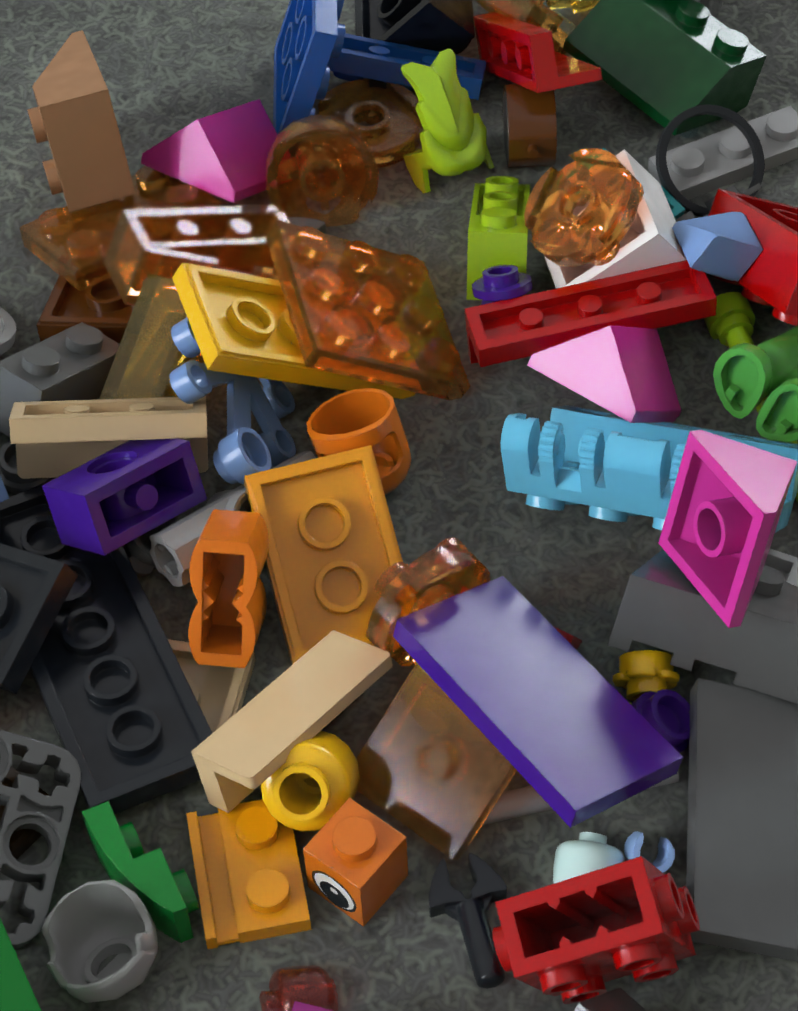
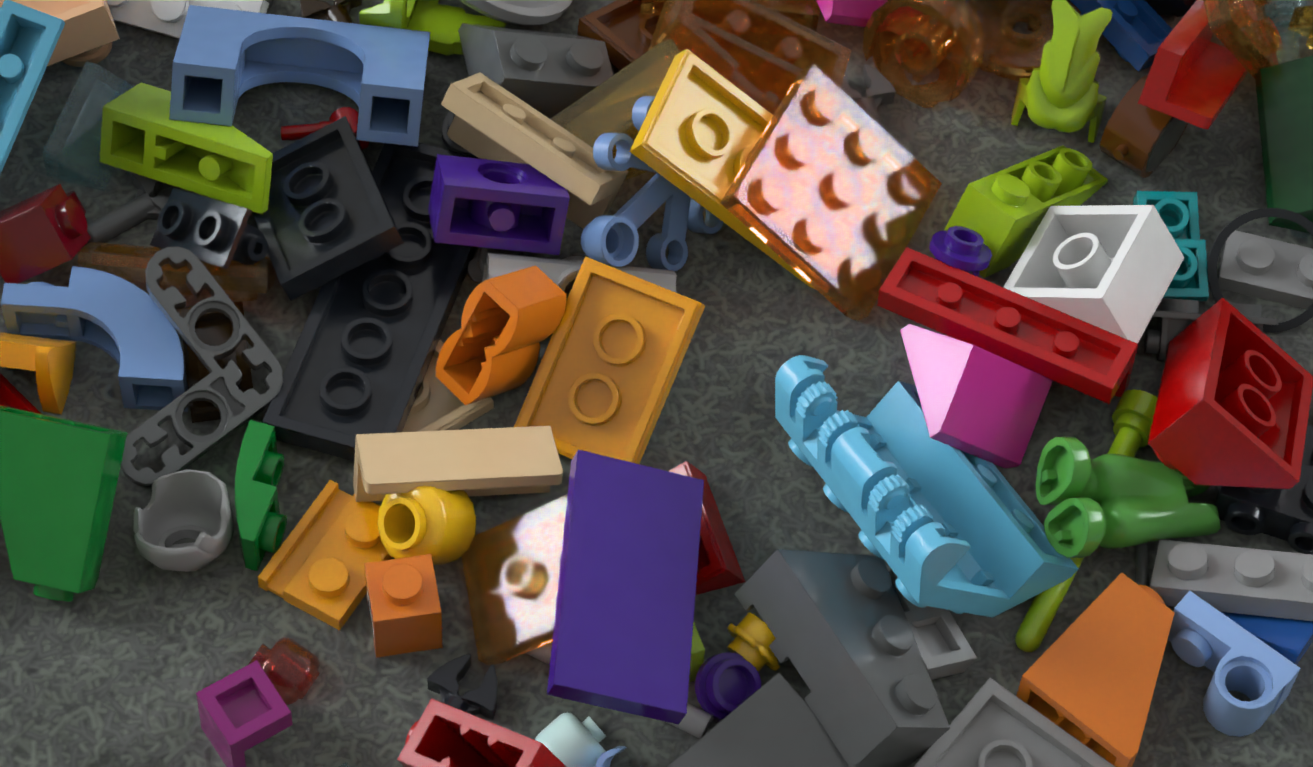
camera: 35 degrees right, 5 degrees up
(362, 420) = (732, 288): orange helmet -> none
(425, 581) = (632, 438): clear orange plate -> none
(599, 229) = (1099, 236): clear orange plate -> none
(719, 244) = (1160, 343): medium blue slope -> none
(725, 518) = (876, 566): dark pink slope -> none

